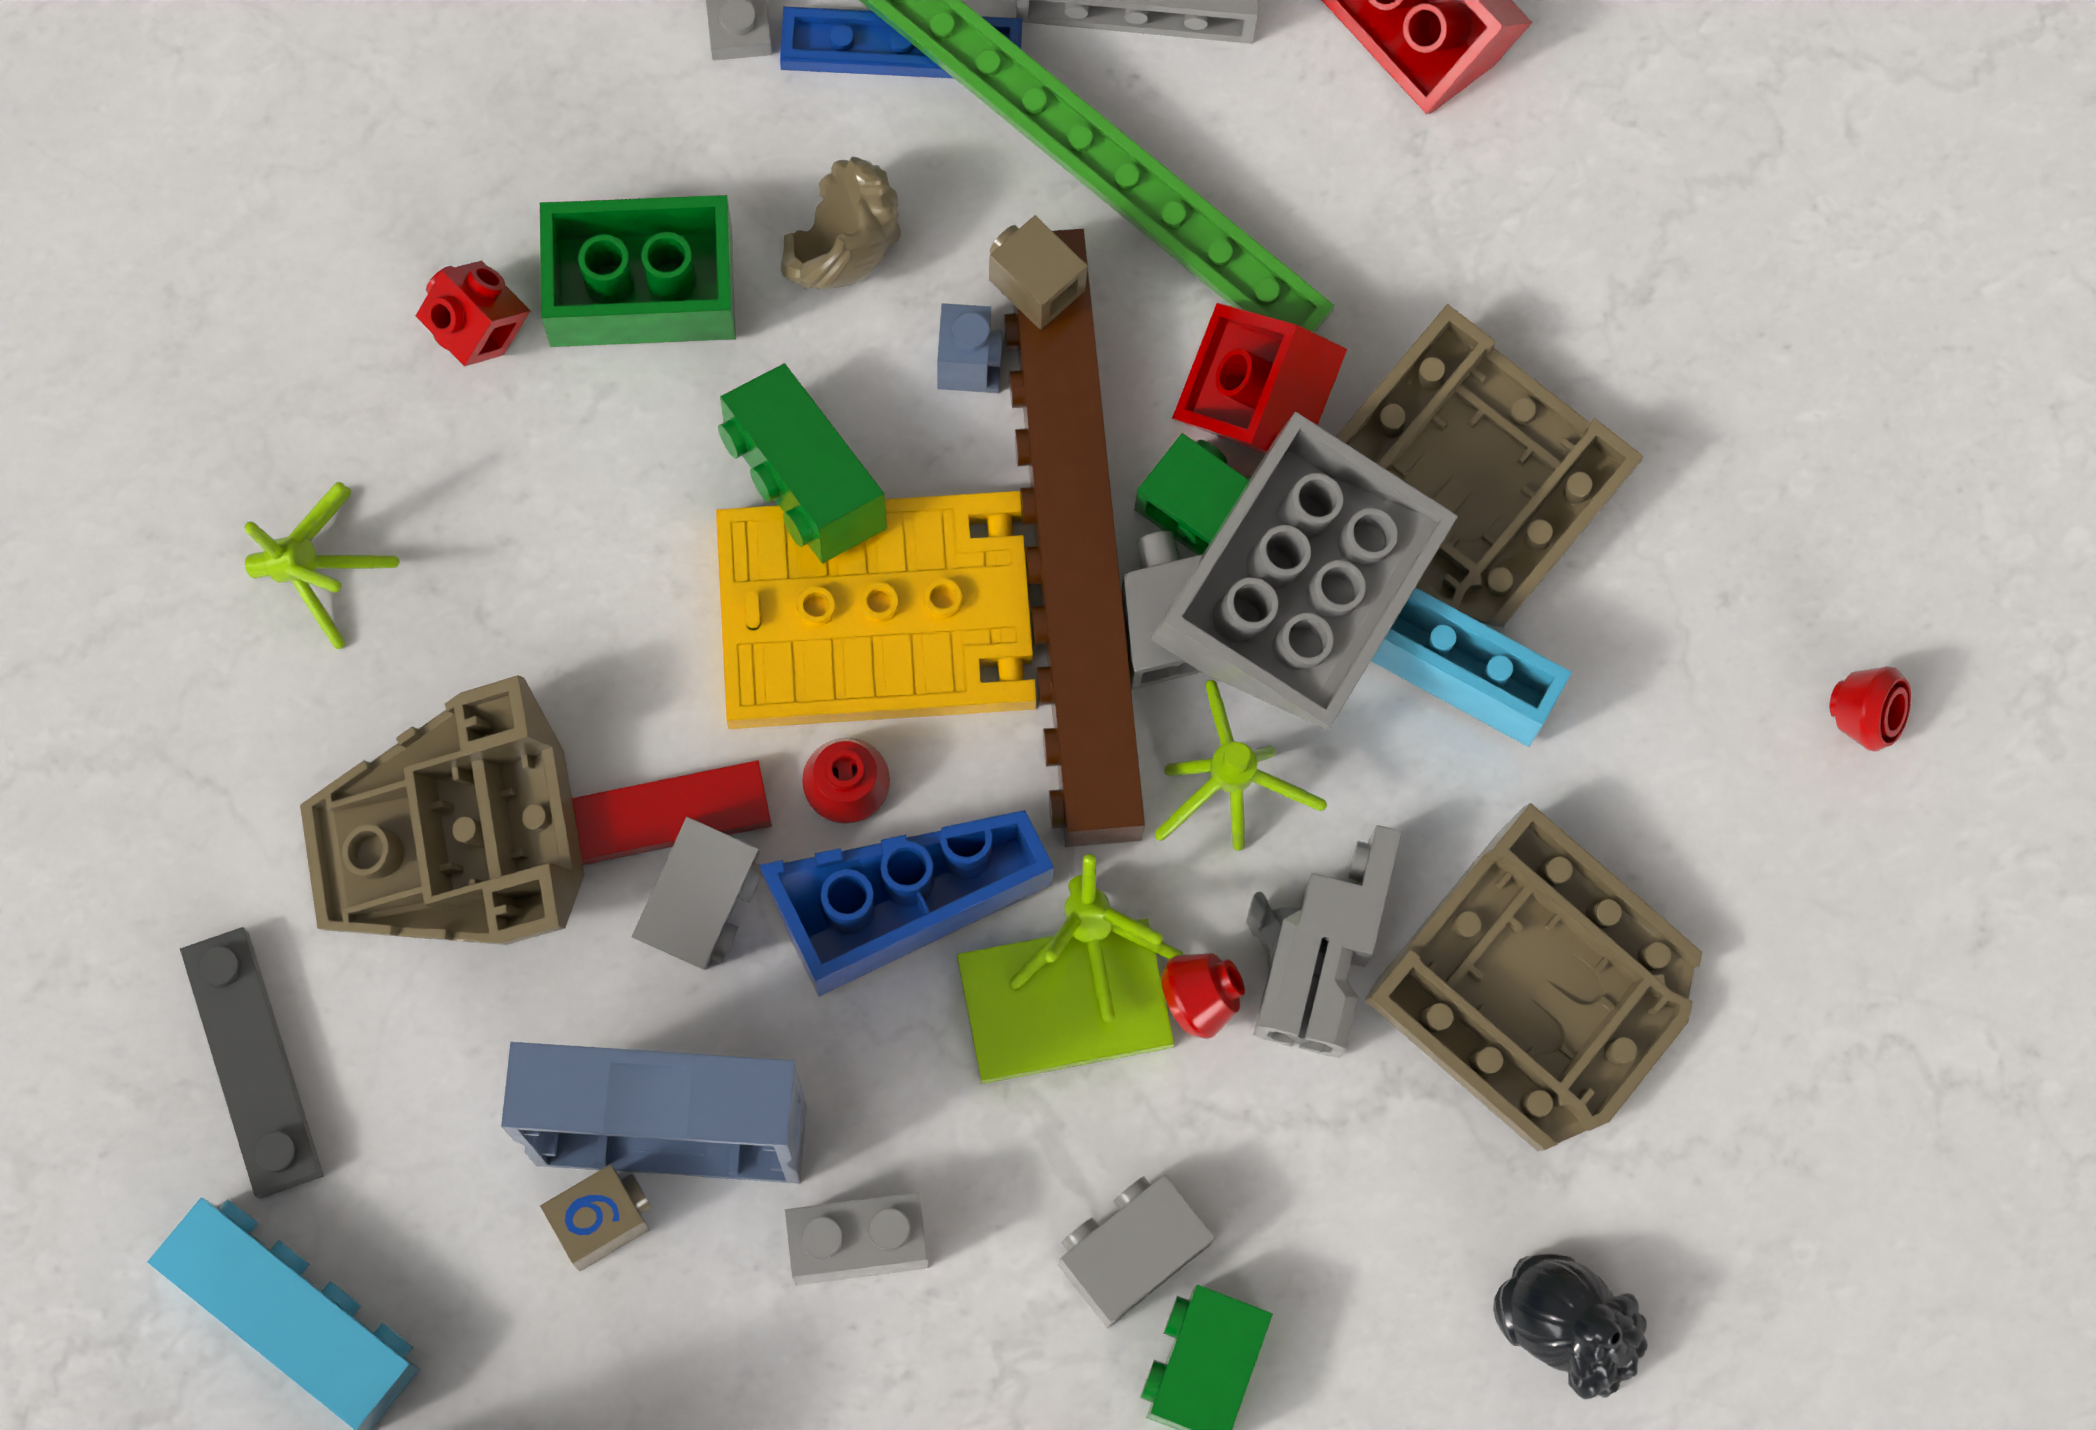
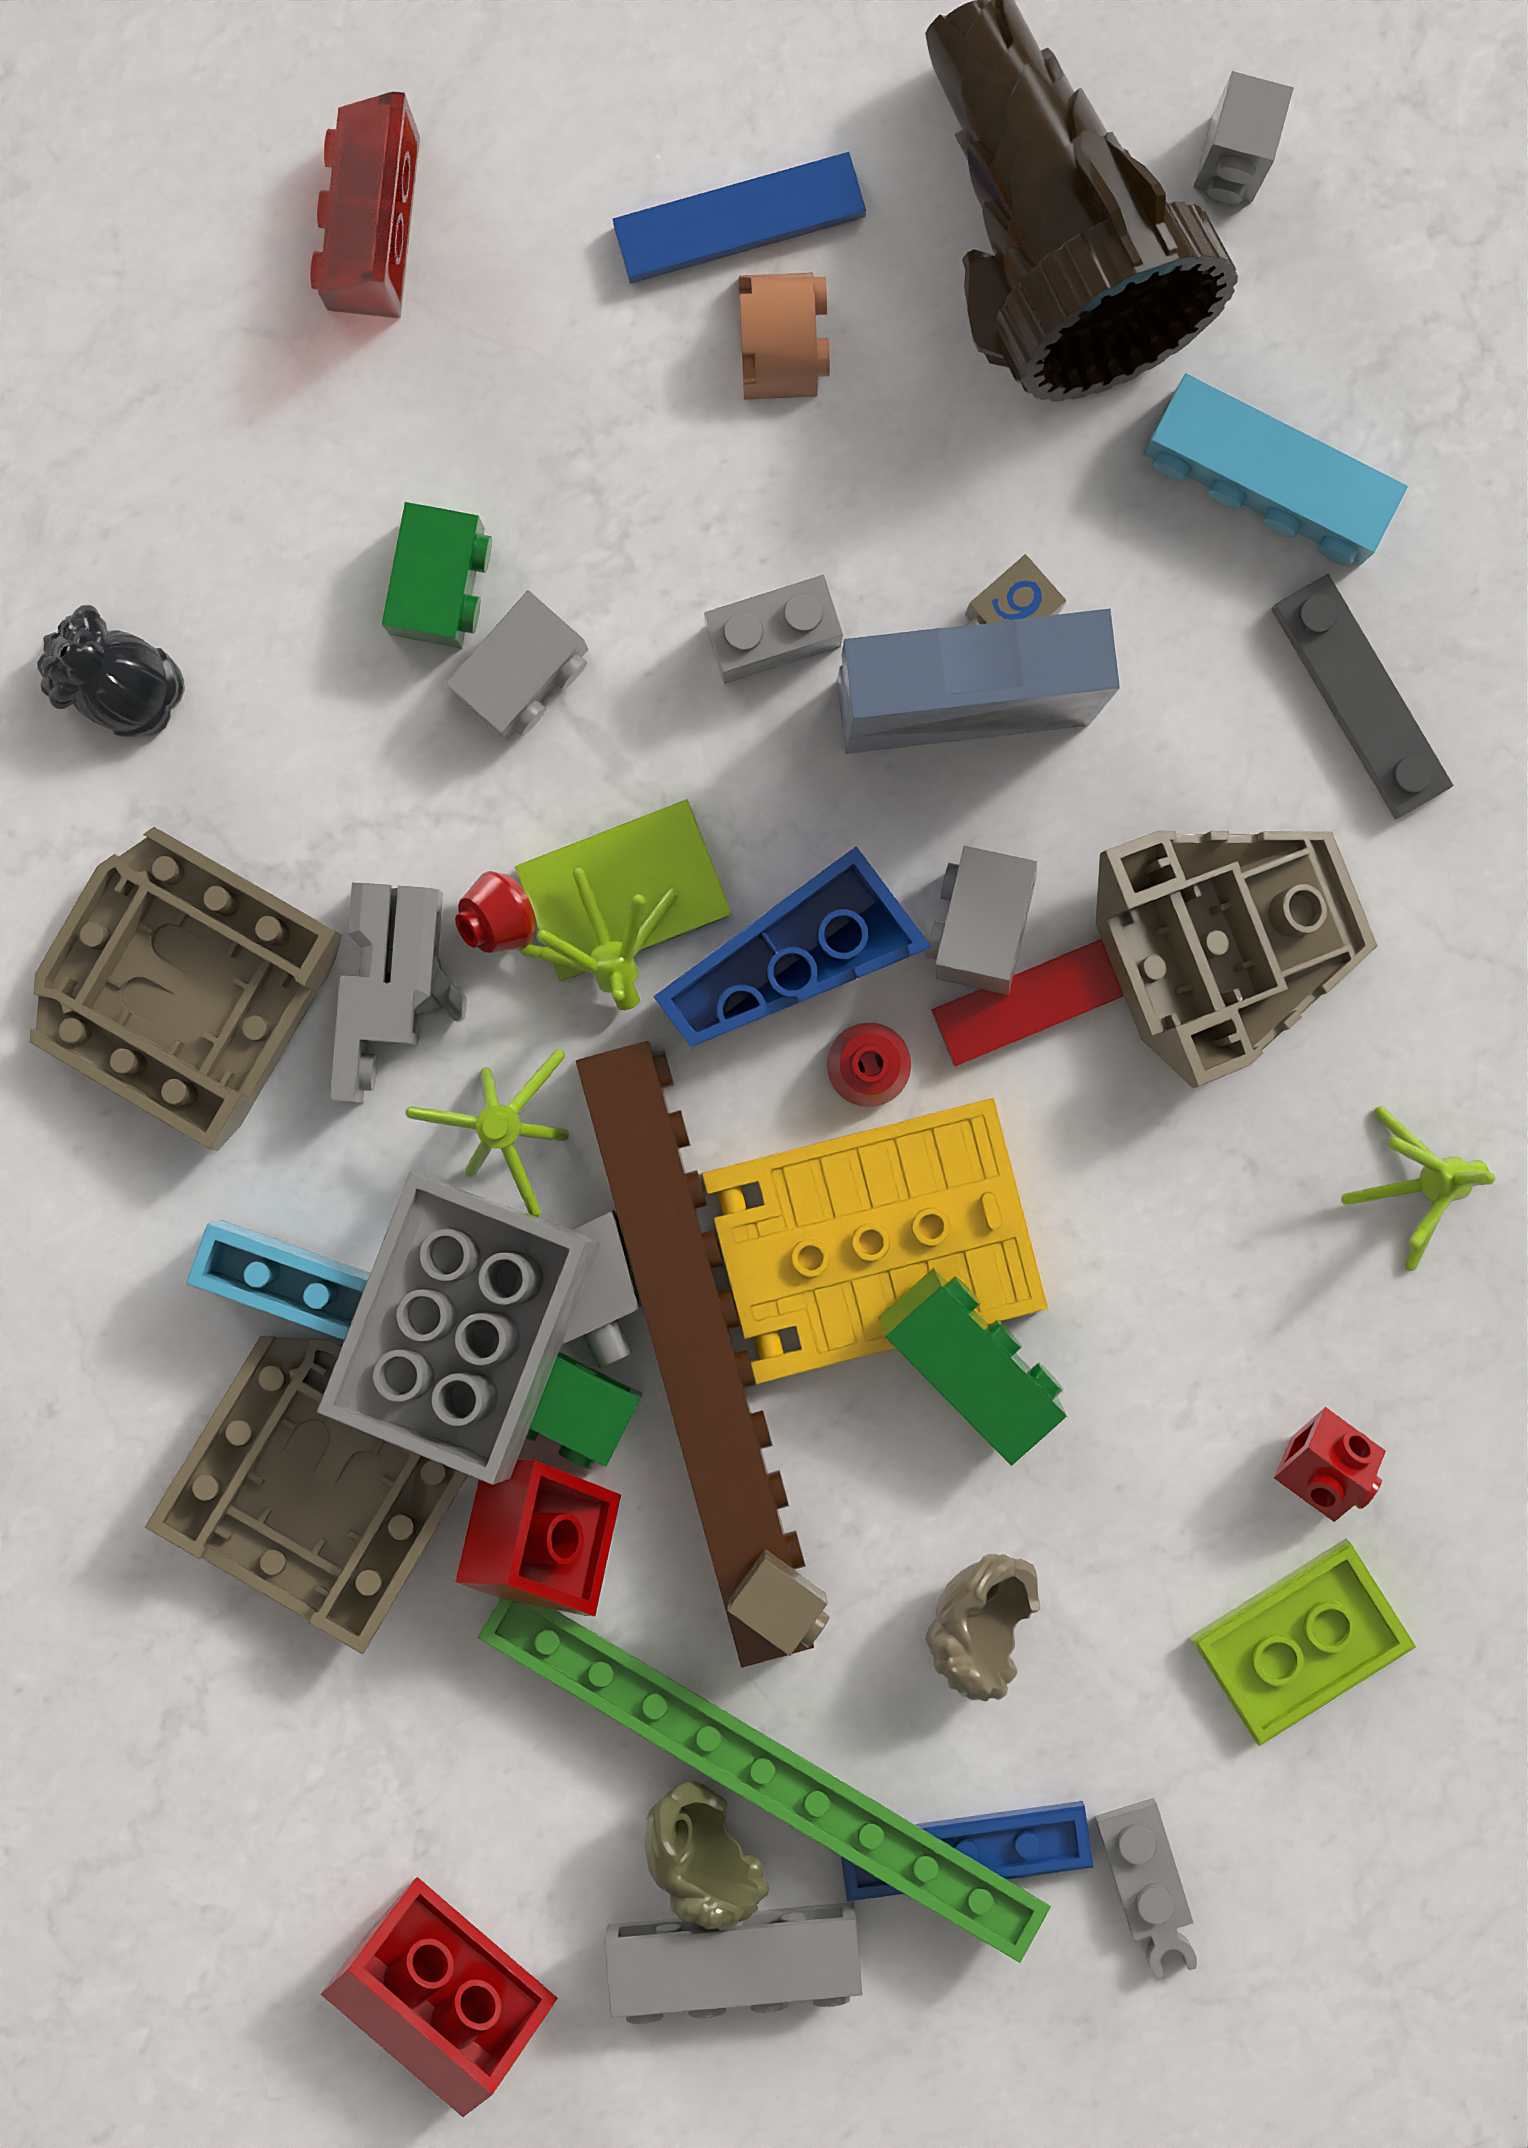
camera: 175 degrees right, 15 degrees up
(532, 156) = (1302, 1642): none -> lime tile
(637, 271) = (1178, 1539): green brick -> none
(968, 349) = (833, 1522): sand blue brick -> none
(1152, 70) = (700, 1860): none -> olive hair

